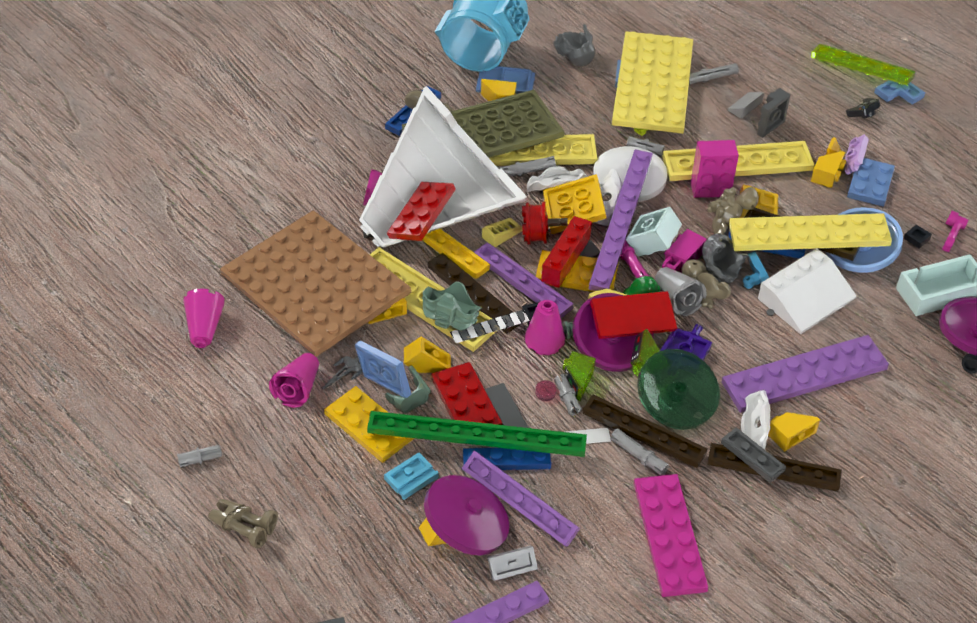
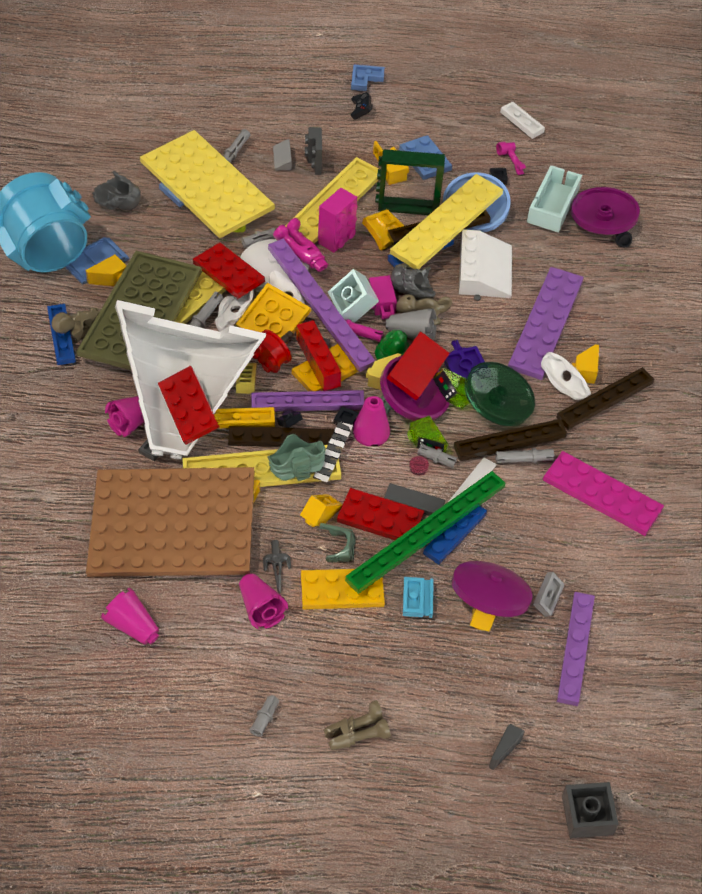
camera: 50 degrees left, 5 degrees up
(383, 369) = (315, 540): medium blue tile -> none
(491, 280) = (289, 418): none -> black plate
(521, 498) = (501, 549): medium lavender plate -> none
(584, 149) = (229, 270): none -> red plate
(664, 180) = (301, 246): none -> dark pink piece
(731, 207) = (378, 243): dark tan animal -> none
(753, 455) = (590, 399): dark grey tile -> none
(759, 272) = (442, 273): dark azure piece -> none
(793, 197) = (409, 158): none -> dark green window
(855, 153) = (392, 138): lavender hinge -> none
(863, 64) = (324, 72): clear neon green plate -> none

